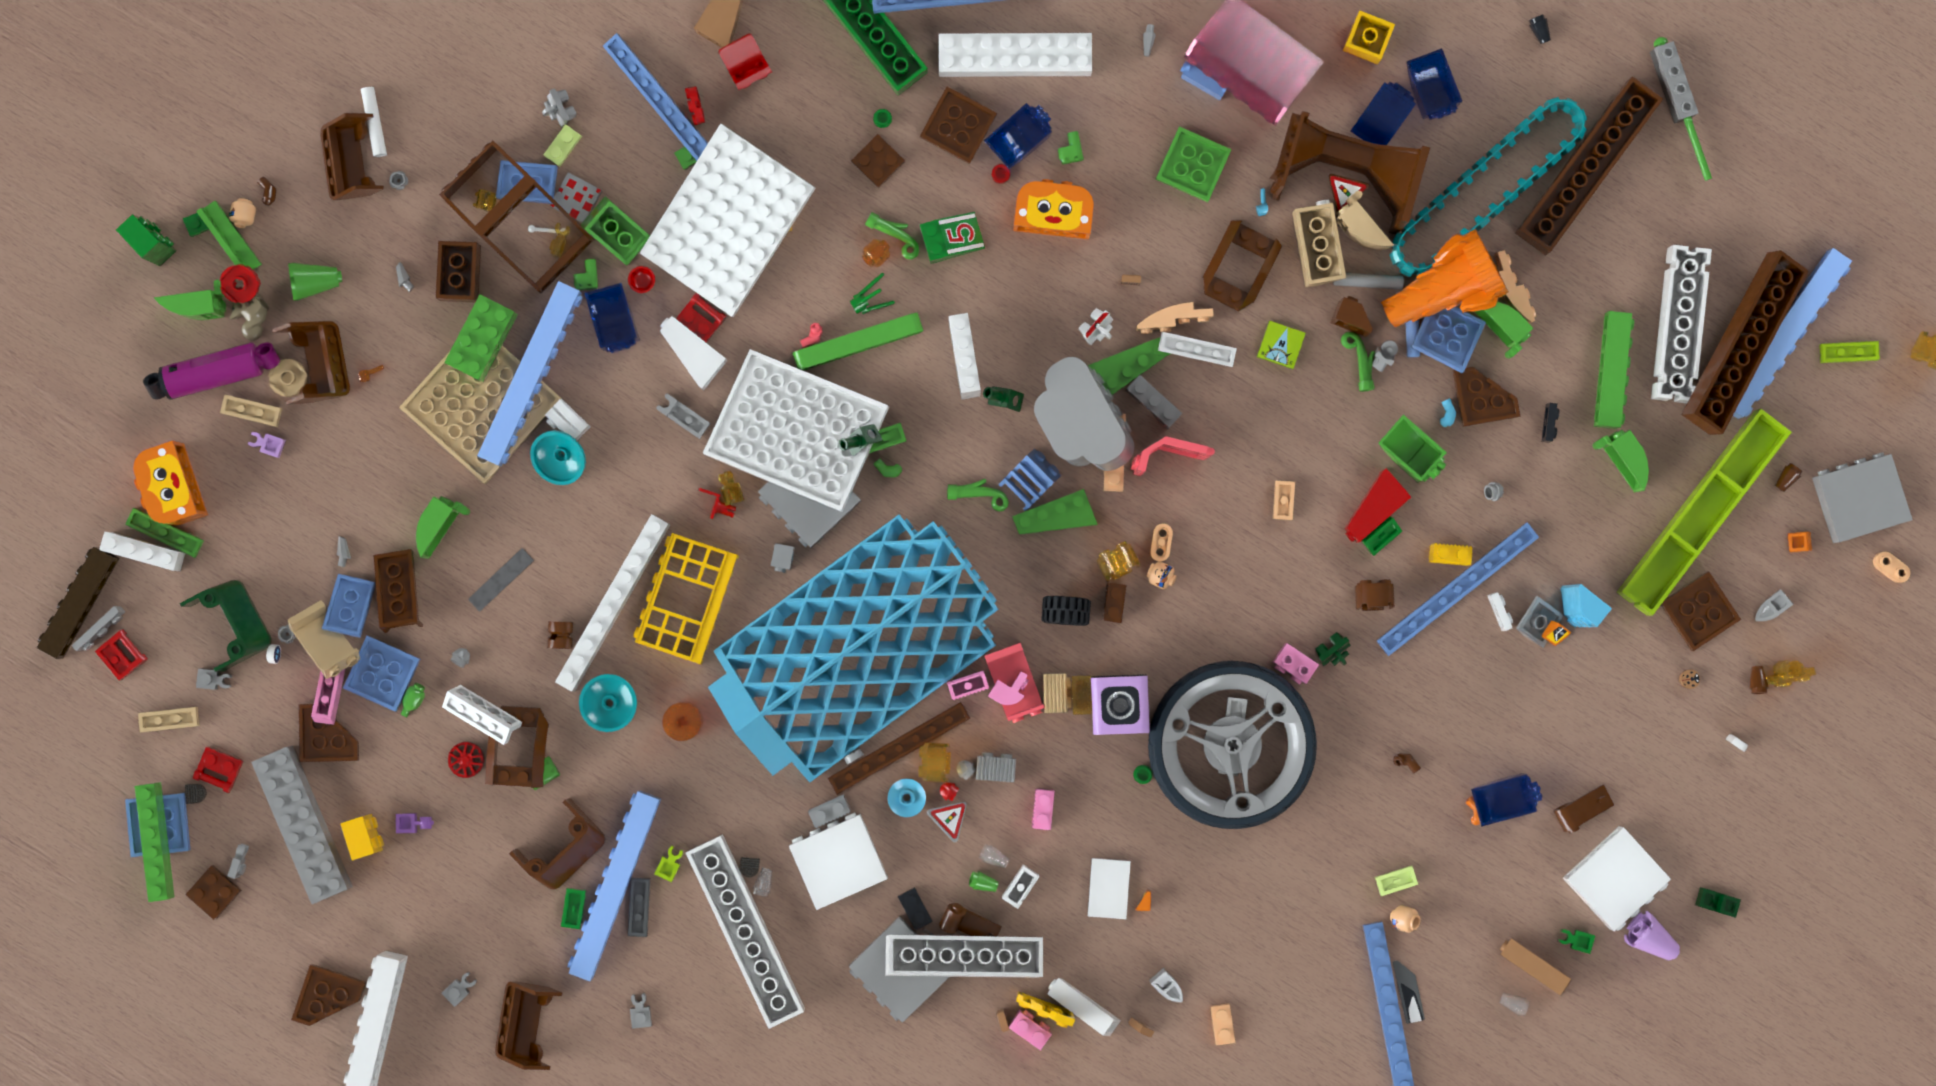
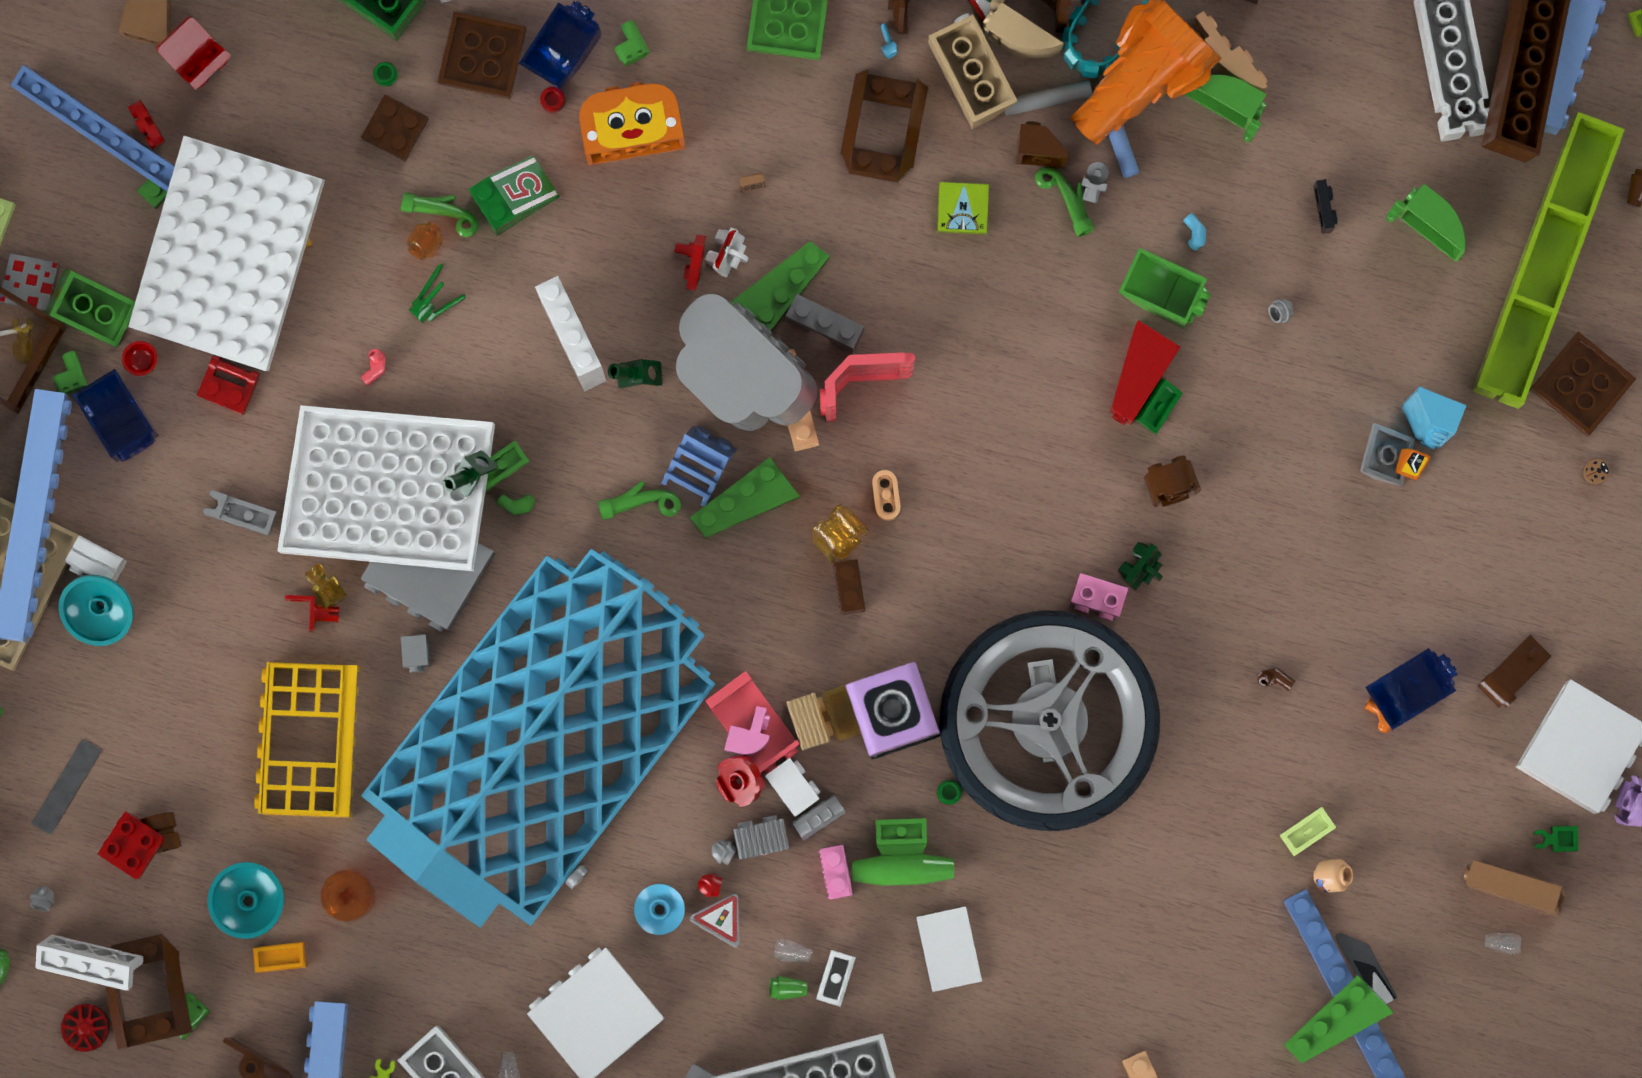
camera: 15 degrees left, 5 degrees down
(535, 639) = (131, 845): none -> red bracket
(612, 603) = (217, 773): white brick -> none
(620, 750) = (279, 957): none -> light orange tile
(694, 353) = (232, 430): white slope -> none
(749, 866) = (485, 1056): clear smoke tile -> none
(829, 811) = (566, 954): light grey brick -> none
(858, 341) = (433, 357): bright green beam -> none
(898, 748) = (631, 850): reddish brown tile -> none
(915, 908) = (711, 1047): black plate -> none
(934, 762) = (681, 852): clear yellow brick -> none
(961, 919) = (775, 1043): reddish brown door -> none
(967, 685) = (695, 743): bright pink brick -> none
(1001, 721) = (751, 779): none -> red plate
(1030, 738) = (793, 787): none -> white brick
(1042, 765) = (818, 817): none -> light grey axle
(1066, 610) = (790, 613): black tyre -> none
(1073, 320) = (696, 252): none -> red plate
(1095, 810) = (902, 857): none -> bright green plate
(1145, 902) = (999, 953): orange slope -> none
(1161, 575) = (898, 535): light nougat head -> none
(1165, 319) = (809, 217): light nougat slope -> none
(1167, 986) = (1059, 1051): light grey plate -> none
(1197, 349) = (859, 243): white plate -> none
(1283, 500) = (1023, 398): light nougat plate -> none
(1378, 1024) = (1342, 1017): none -> bright green wing
(1449, 337) = (1167, 137): medium blue plate -> none
(1450, 554) = (1251, 404): yellow brick -> none
(1457, 589) = (1272, 445): medium blue plate -> none
(1483, 399) = (1232, 201): reddish brown plate -> none
(1504, 619) = (1342, 464): white plate -> none
(1613, 370) = (1383, 119): bright green brick -> none

